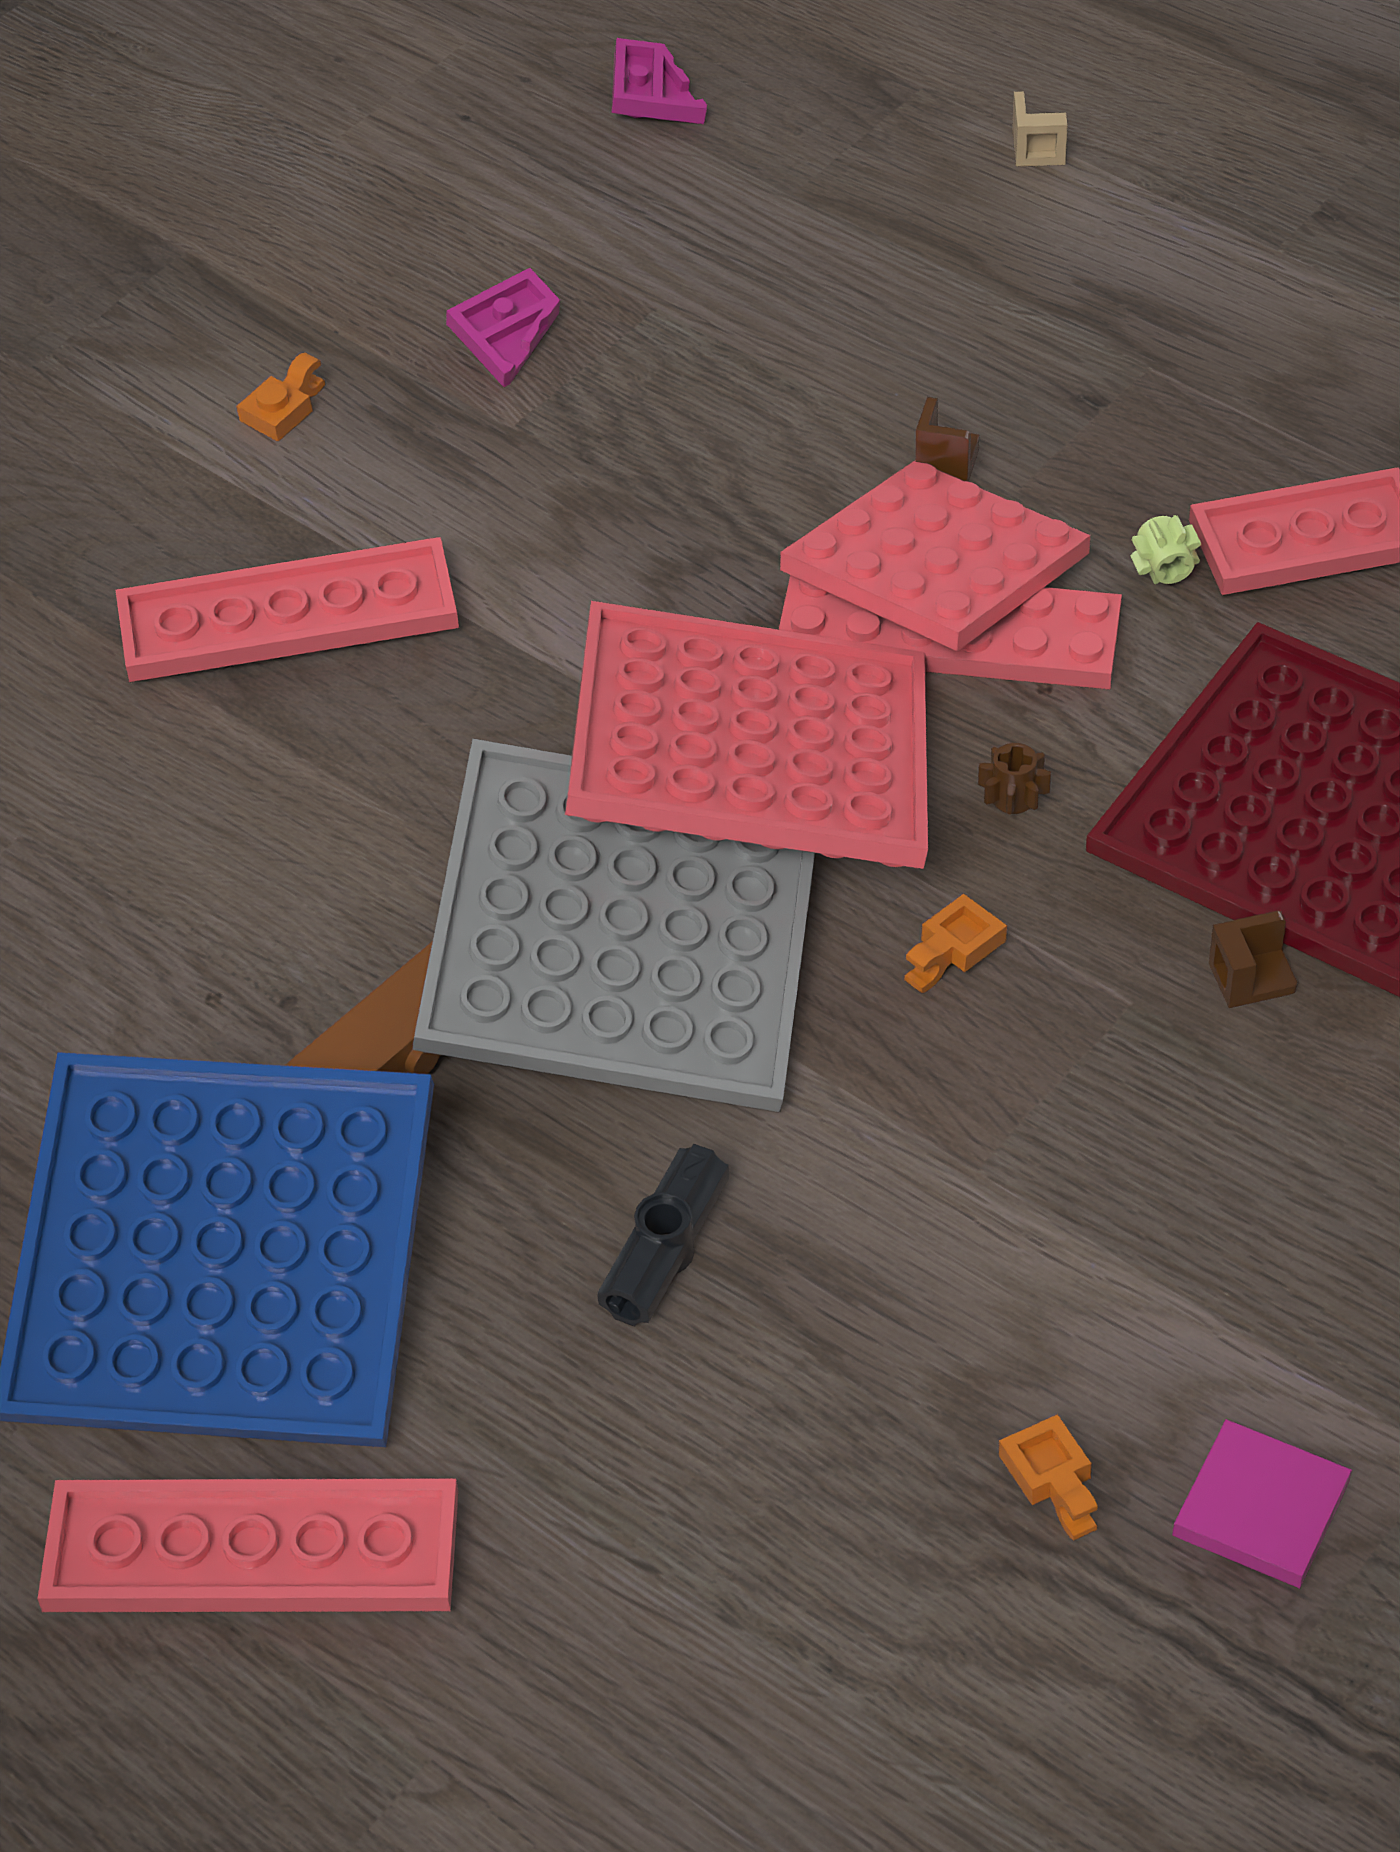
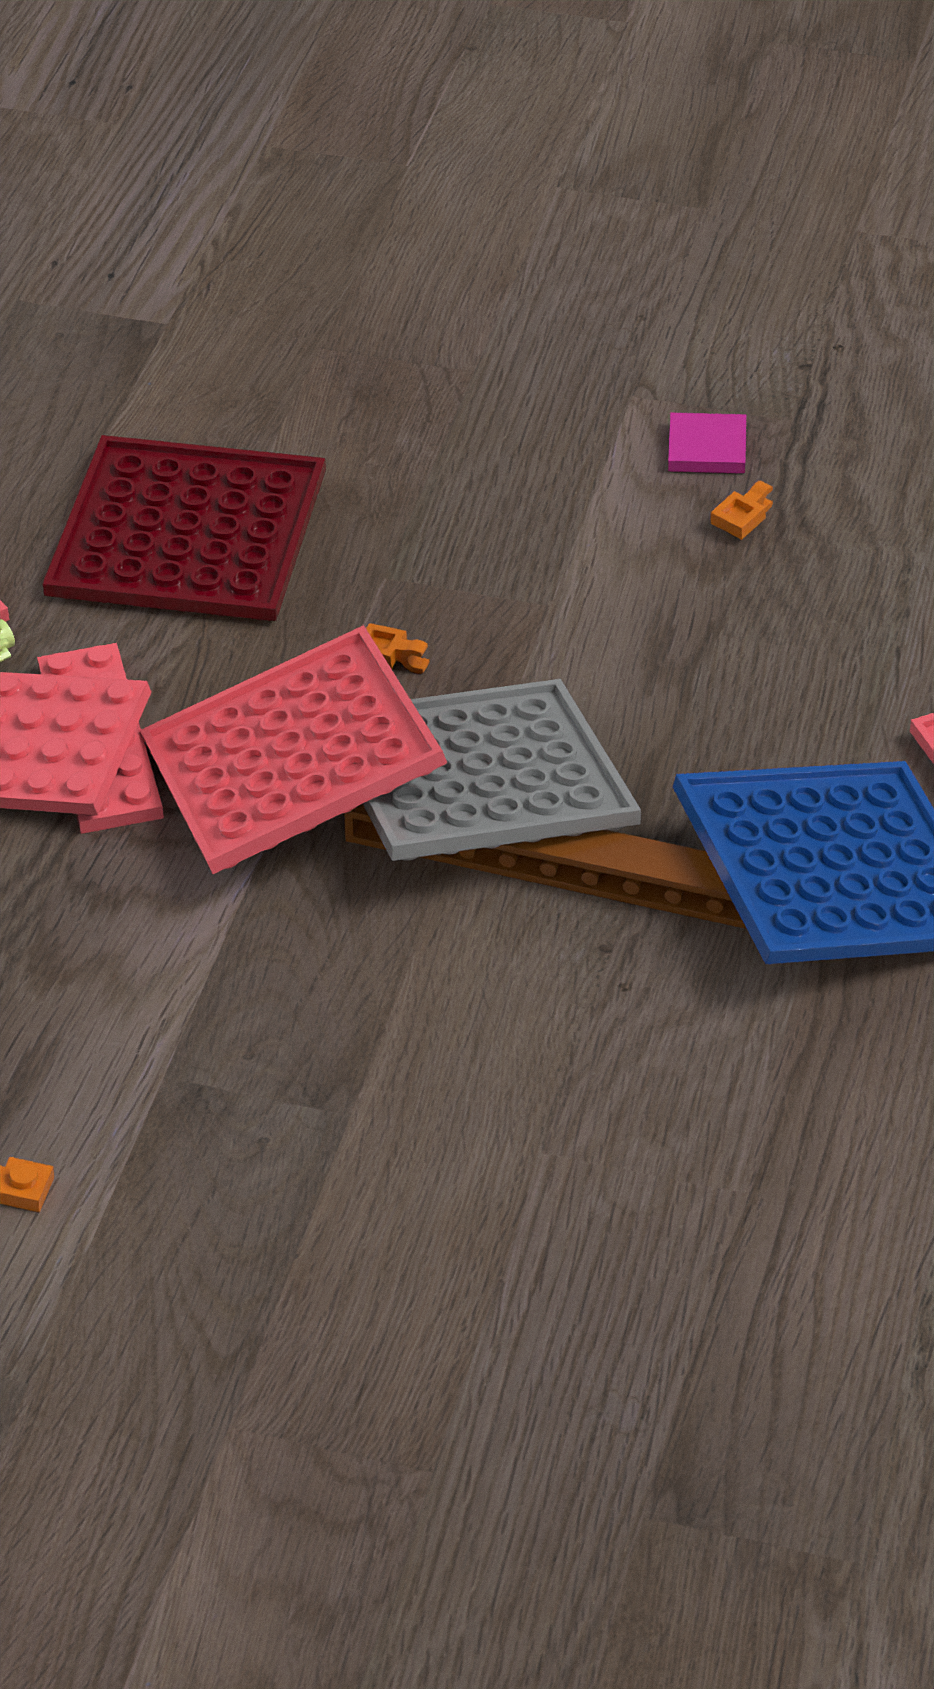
camera: 115 degrees left, 5 degrees down
(285, 609) = (255, 1079): coral plate -> none
(650, 1259) = (689, 696): black piece -> none
(1014, 778) = (238, 656): reddish brown gear -> none
(1250, 959) = (339, 530): reddish brown panel -> none

